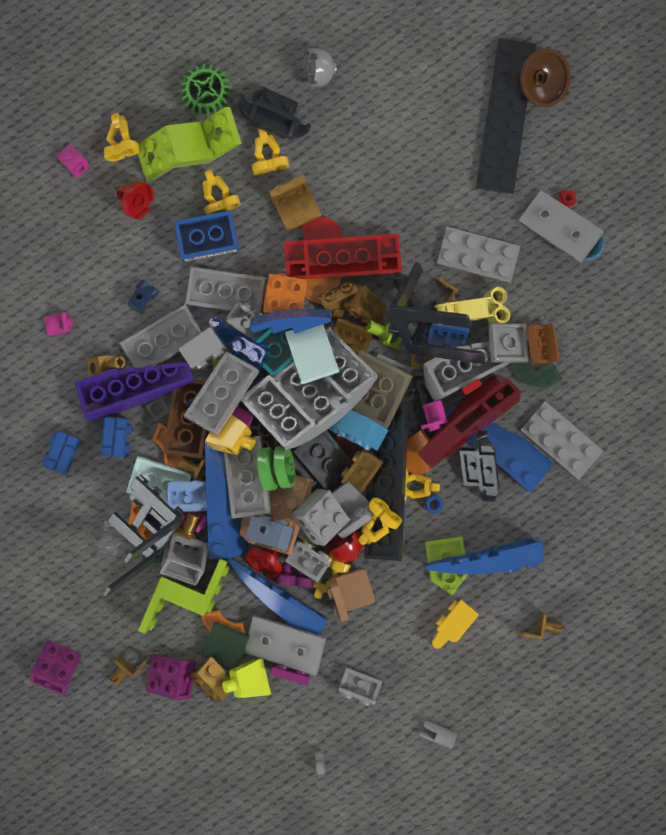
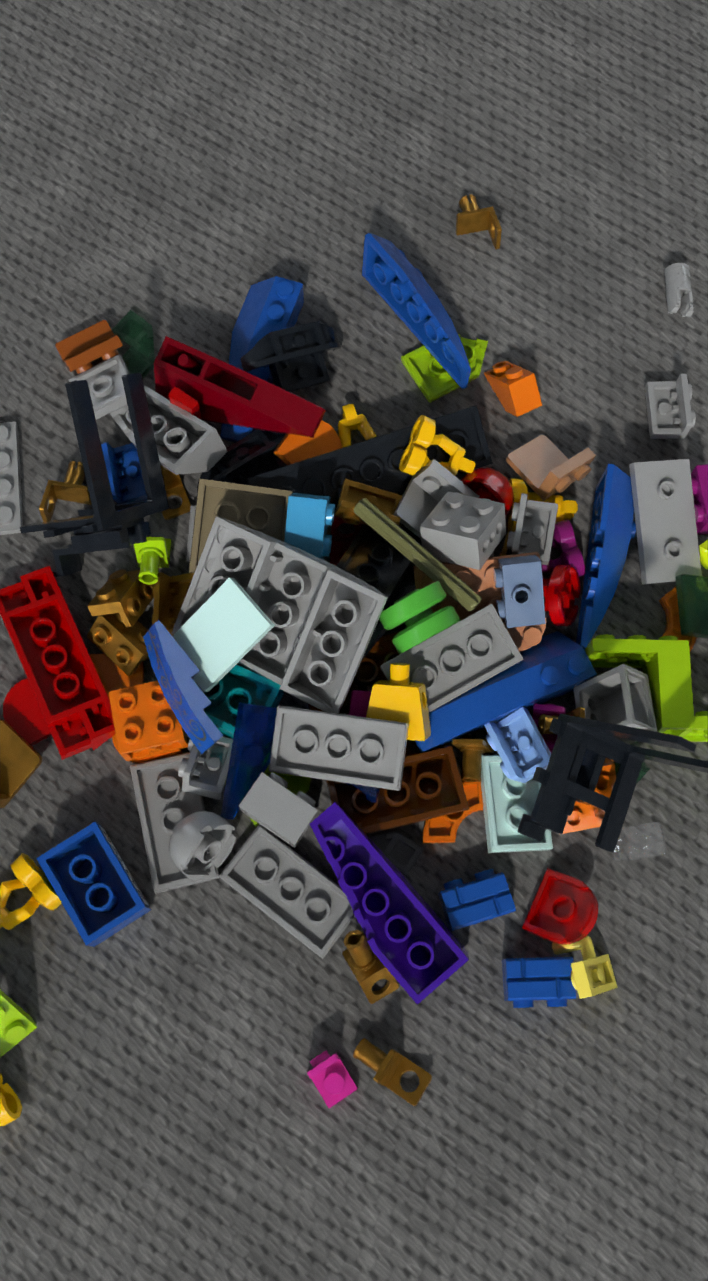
camera: 110 degrees left, 15 degrees down
(50, 356) = (390, 1070): none -> pearl gold bracket
(51, 480) = (593, 973): none -> light yellow plate
(73, 161) = (40, 1174): dark pink bracket -> none
(91, 481) = (562, 909): none -> red tile
(136, 199) = (70, 1030): red tile -> none
(142, 296) = (231, 952): dark blue plate -> none
(204, 299) = (200, 842): none -> light grey cylinder
(314, 482) = (417, 554): none -> olive axle
(412, 596) = (514, 387): none -> orange slope
(435, 415) = (247, 439): dark pink bracket -> none
(438, 508) = (373, 400): blue plate -> none
(454, 623) = (525, 322): yellow hinge -> none
(482, 307) = (58, 433): light yellow piece -> none
(561, 440) = (215, 285): light grey plate -> none

